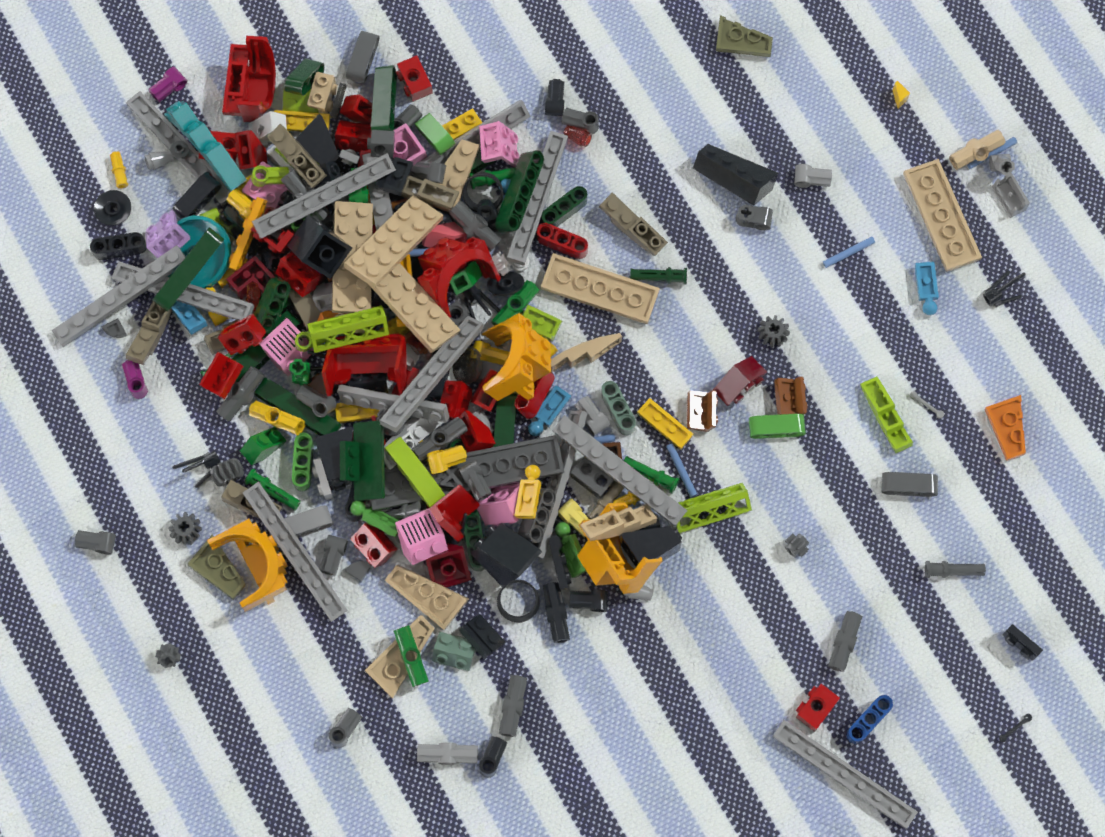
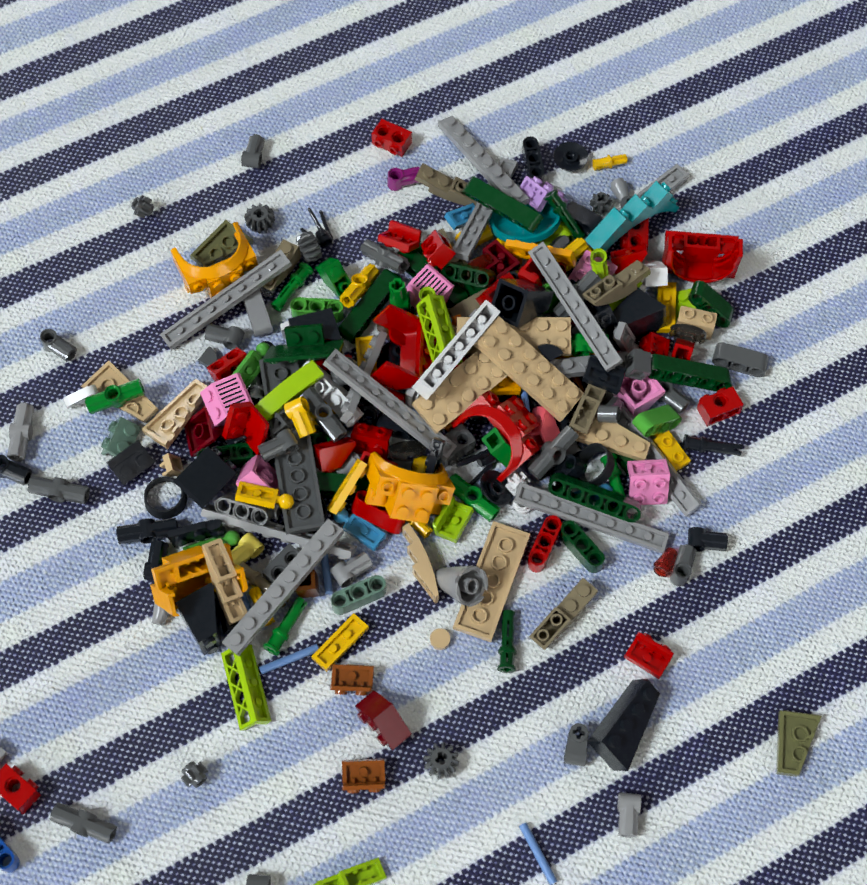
camera: 90 degrees right, 10 degrees down
(77, 391) = (391, 138): none -> red brick
(114, 329) = (454, 163): dark grey tile -> none
(171, 81) = (700, 200): magenta piece -> none
(177, 182) = (600, 202): none -> dark grey gear
(192, 213) = (559, 208): none -> dark green pin
(320, 404) = (366, 316): dark grey piece -> none
(373, 221) = (550, 351): none -> black tile
(380, 303) = (456, 350): none -> white brick
(407, 694) = (79, 396): none -> white beam
(456, 97) = (702, 445): none -> black pin
(484, 593) = (172, 464): none -> tan tile
(490, 336) = (434, 459): none -> black hinge
(513, 417) = (347, 487): none -> yellow plate
(609, 311) = (463, 583): none -> light grey cone
(658, 335) = (439, 639): none -> tan tile
(669, 153) = (649, 654): none -> red bracket
(777, 426) = (331, 760): bright green beam -> none

